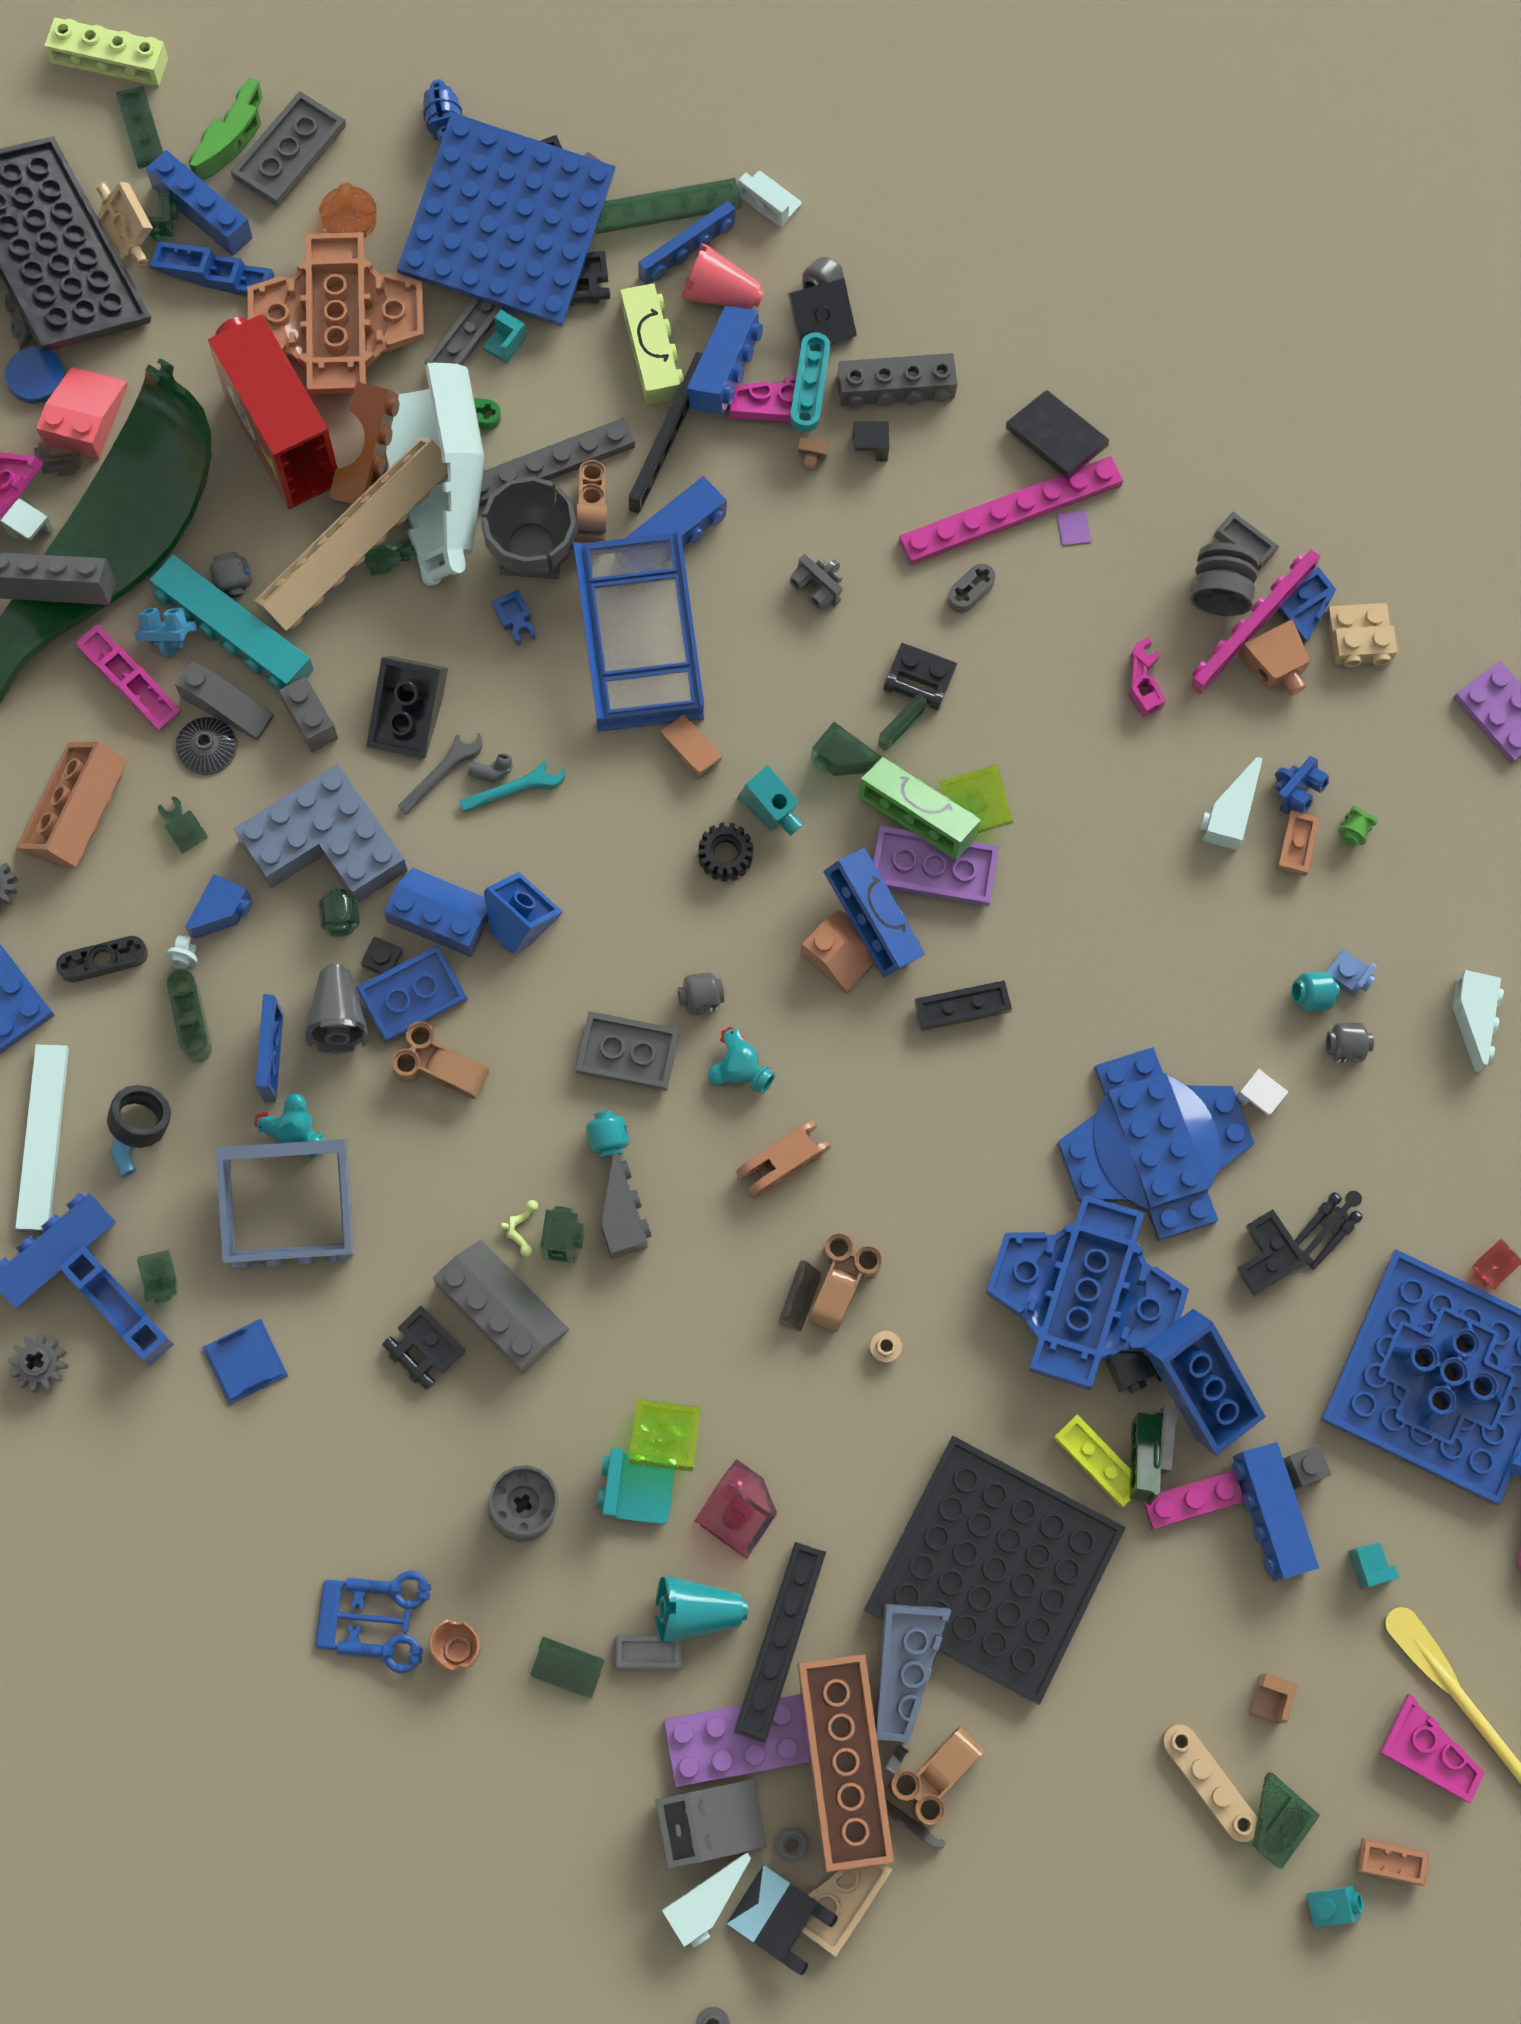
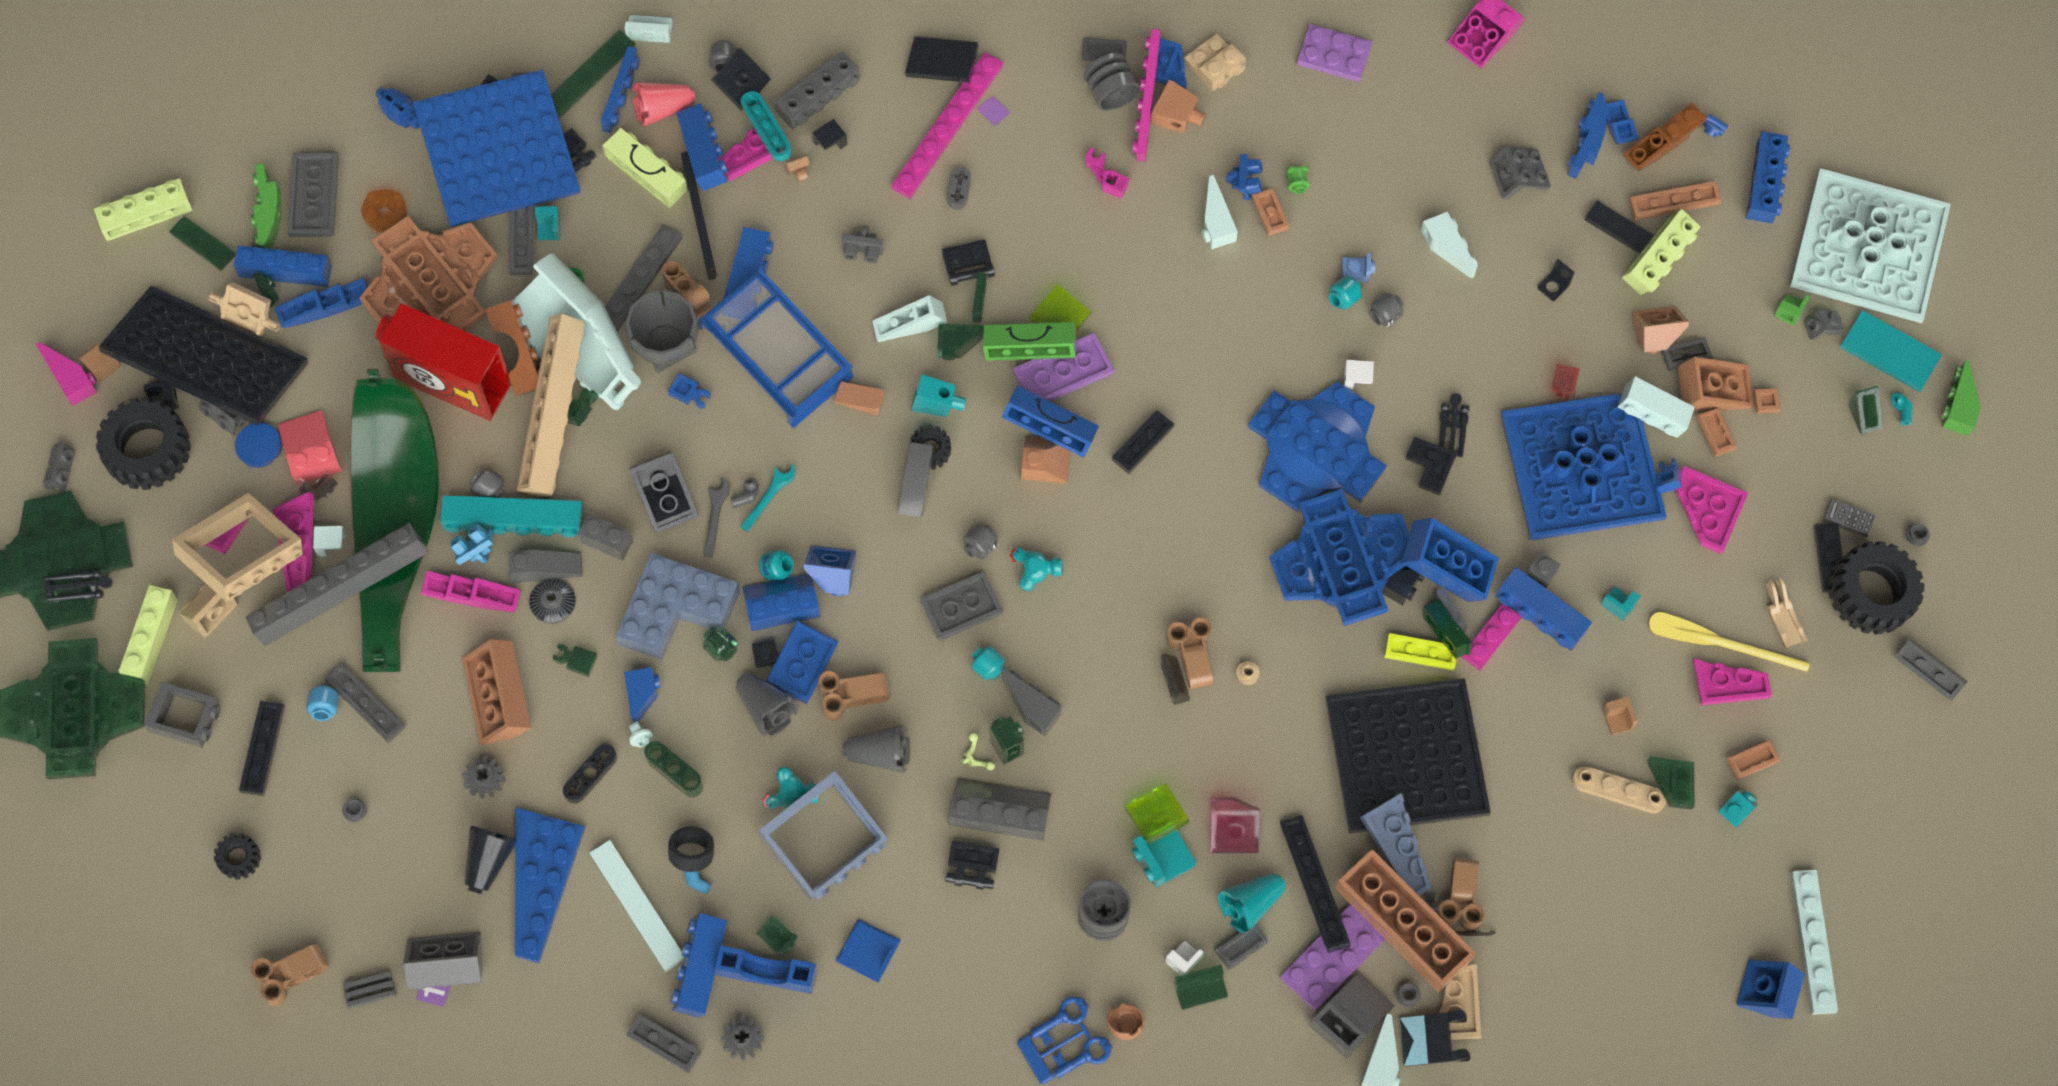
camera: 30 degrees left, 5 degrees down
(269, 1048) = (741, 752): blue tile -> none
(422, 1150) = (880, 748): none -> dark grey cone
(462, 868) = (776, 565): none -> teal head
(574, 1620) = (1184, 958): none -> white panel
(680, 877) = (916, 479): none -> dark grey slope
(782, 1159) = (1104, 605): nougat piece -> none
(810, 697) = (911, 319): none -> light aqua slope

